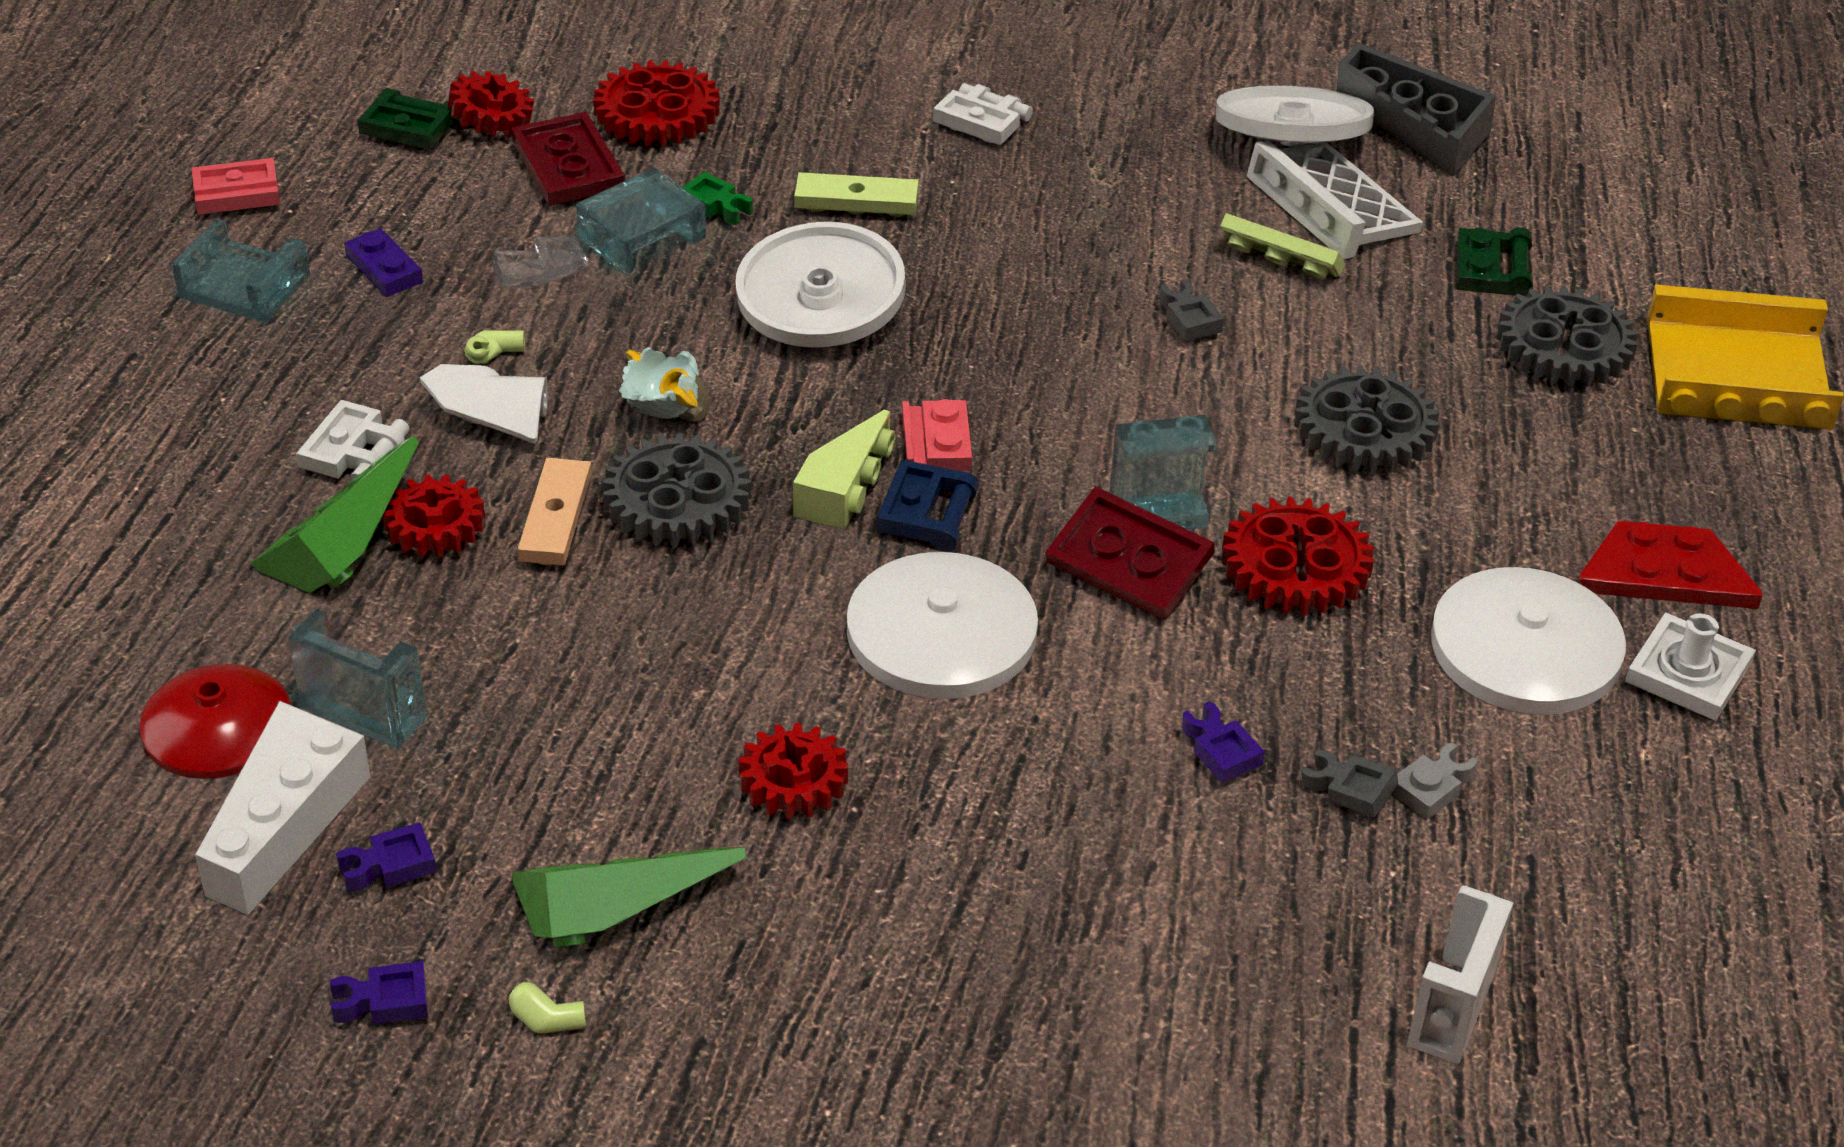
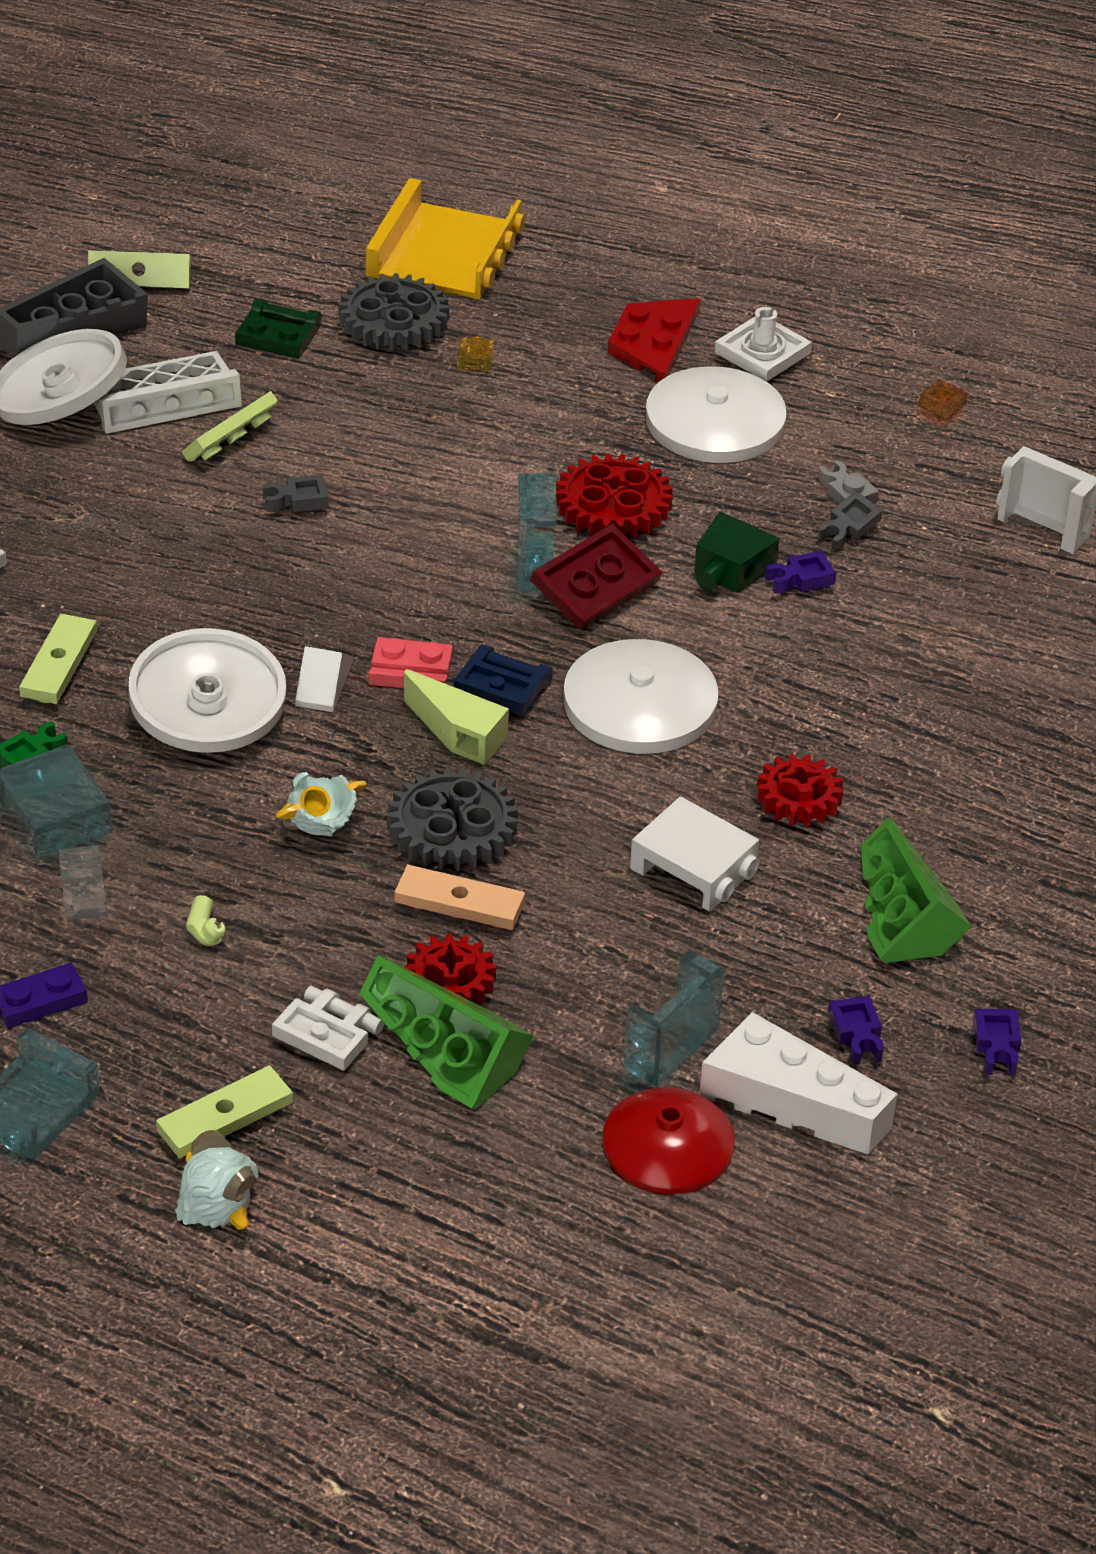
camera: 80 degrees left, 0 degrees up
(125, 392) = (215, 1183): none -> light aqua hair
(228, 391) = (225, 1109): none -> yellowish green tile
(489, 399) = (302, 918): white panel -> none
(541, 1013) = (1018, 955): yellowish green arm -> none
(655, 685) = (697, 850): none -> white panel
(892, 370) = (322, 678): none -> white slope
(1224, 667) = (733, 554): none -> dark green torso
(1366, 419) = (465, 430): dark grey gear -> none
(1531, 145) = (161, 269): none -> yellowish green tile
(1535, 417) = (475, 353): none -> clear yellow plate
(1675, 862) = (942, 399): none -> clear orange plate

